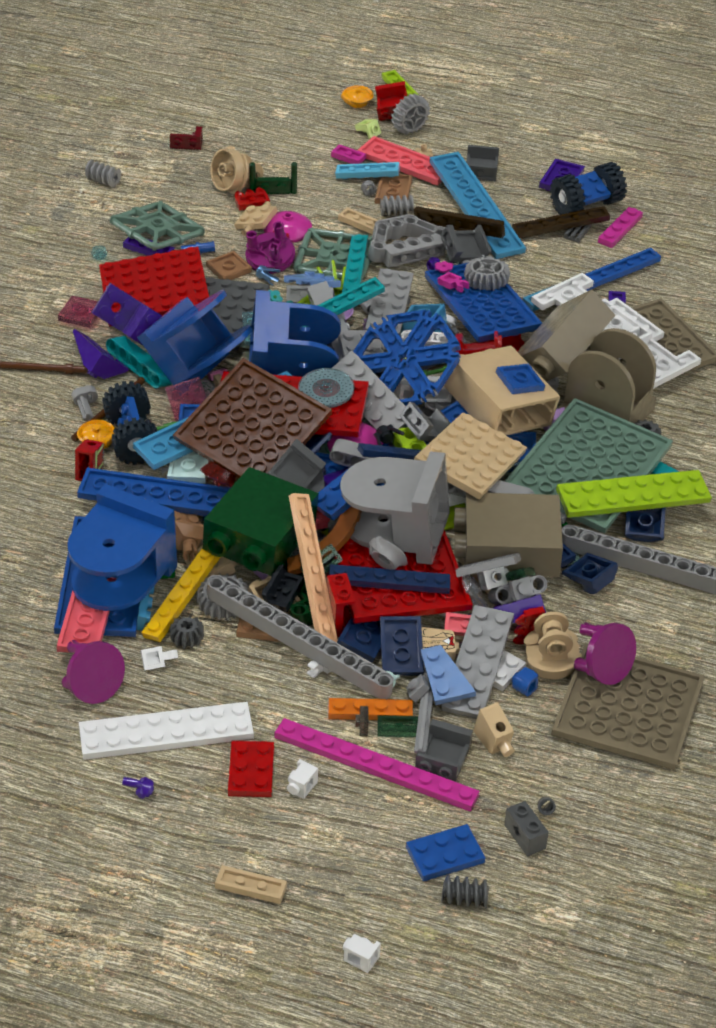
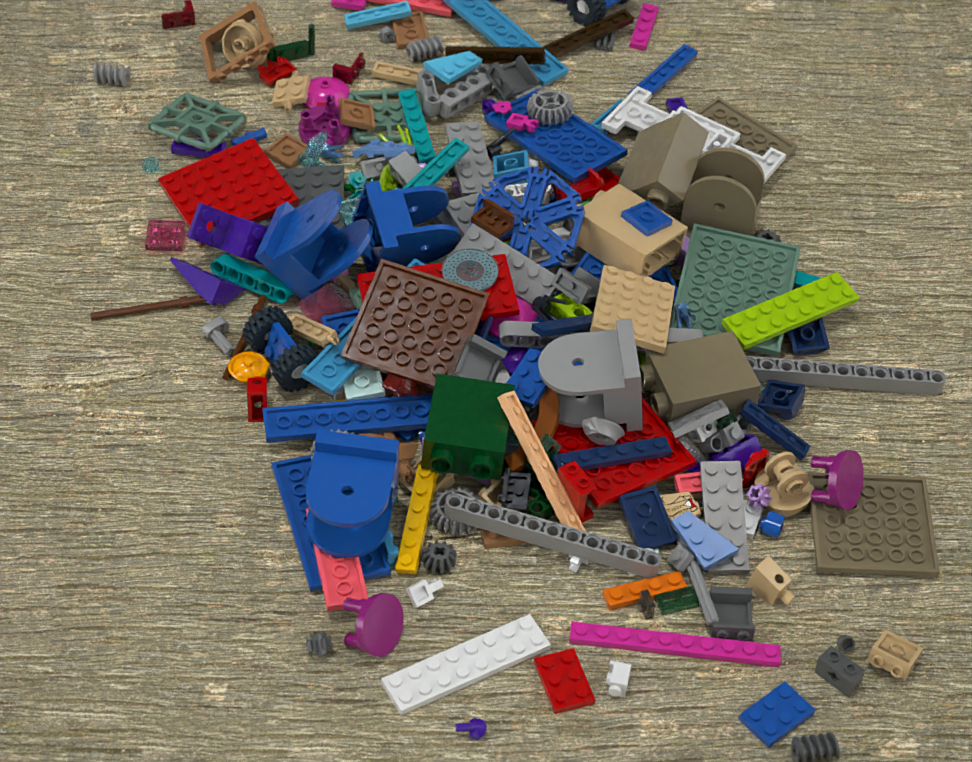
camera: 20 degrees left, 5 degrees up
(37, 677) = (319, 643): none -> dark grey gear
(164, 412) = (313, 330): none -> tan plate
(242, 143) = (216, 33): none -> medium nougat windscreen
(246, 270) = (312, 153): none -> clear light blue piece
(303, 246) = (356, 114): none -> medium nougat tile
(317, 214) = (349, 74): none -> dark red bracket
(362, 639) = (607, 521): dark blue plate -> none
(372, 350) = (493, 219): none -> reddish brown bracket
(412, 222) = (453, 66): none -> medium azure wing
(421, 299) = (495, 148): none -> black plant
(520, 650) = (759, 496): none -> lavender gear
(521, 469) = (682, 311): none -> flat silver piece
(566, 594) = (774, 429): none -> dark blue plate
(591, 828) = (894, 654): none -> tan plate

